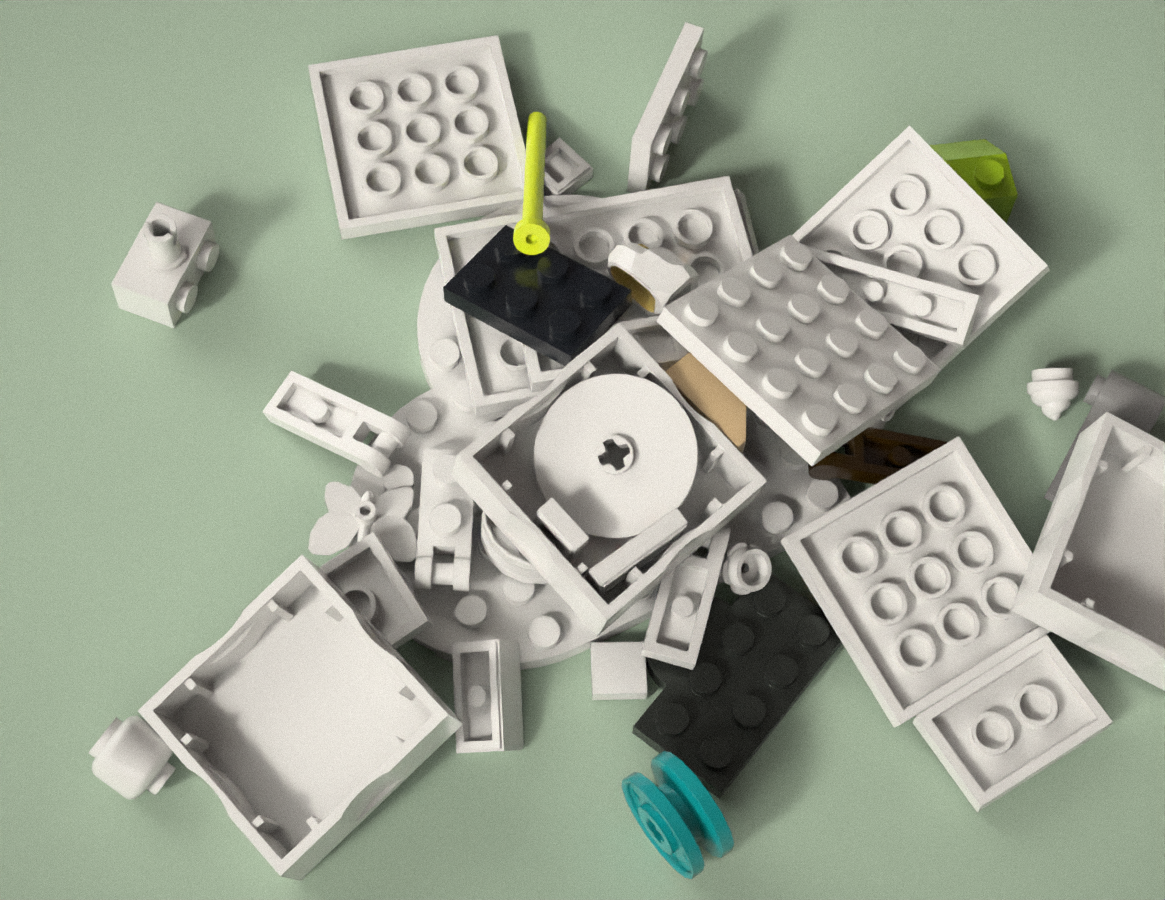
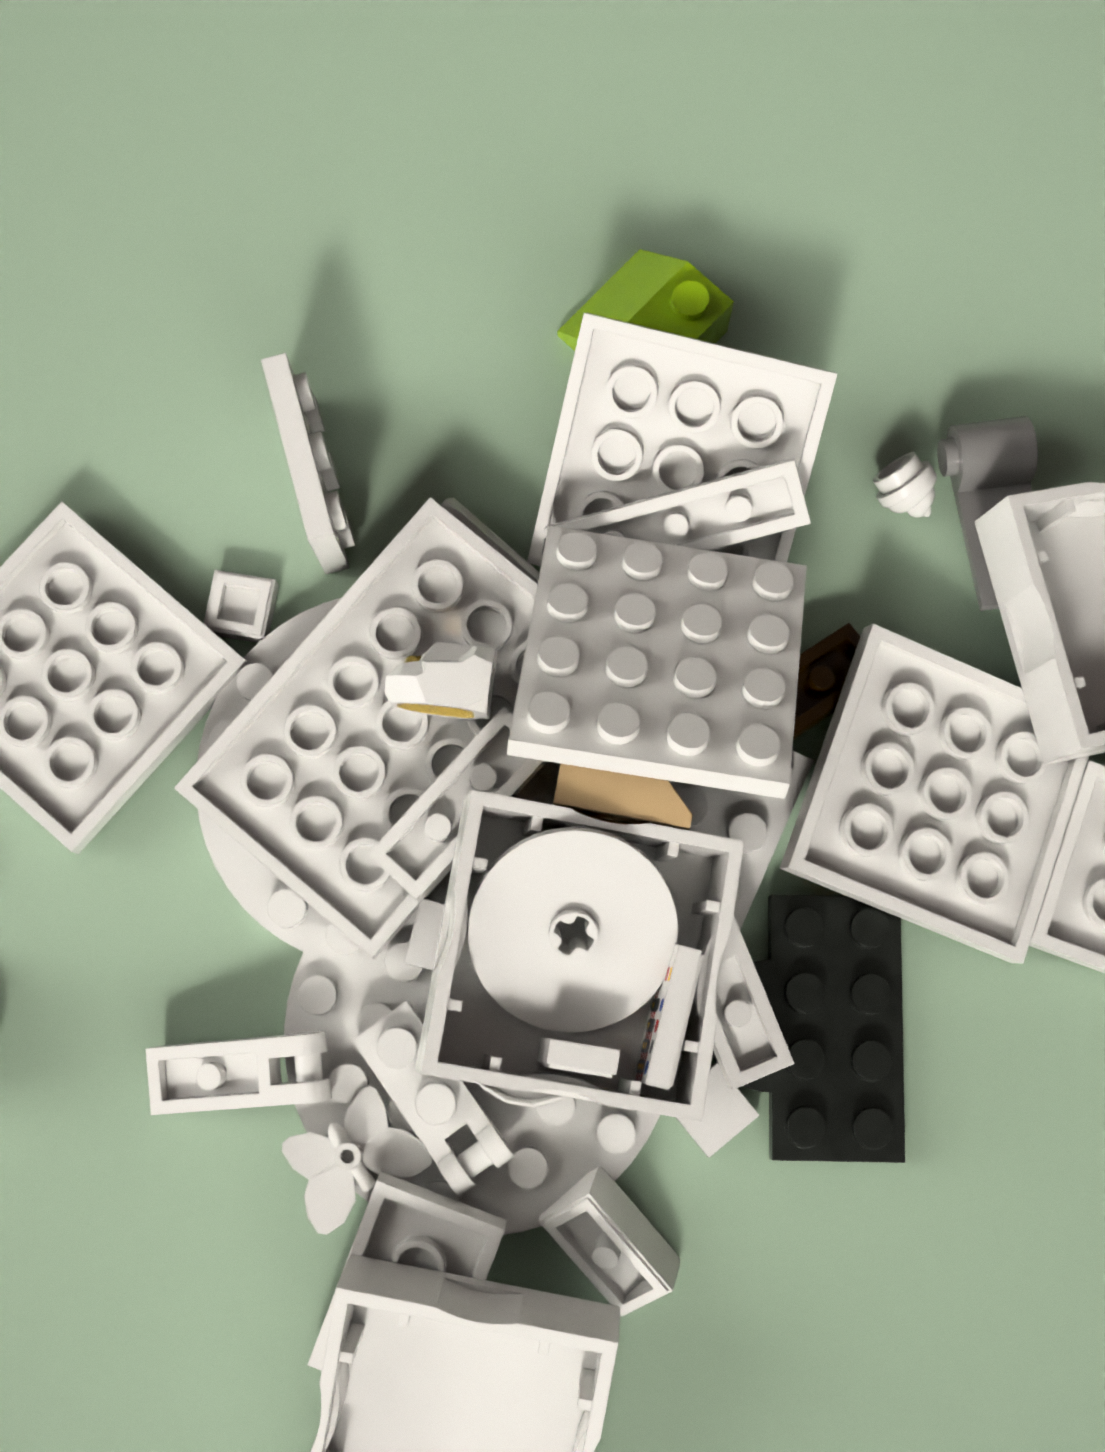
camera: 30 degrees left, 15 degrees up
(532, 233) = (291, 737): neon yellow bar -> none
(538, 298) = (347, 796): black plate -> none
(677, 814) = (894, 1236): teal wheel -> none
(755, 572) = (763, 916): white plate -> none

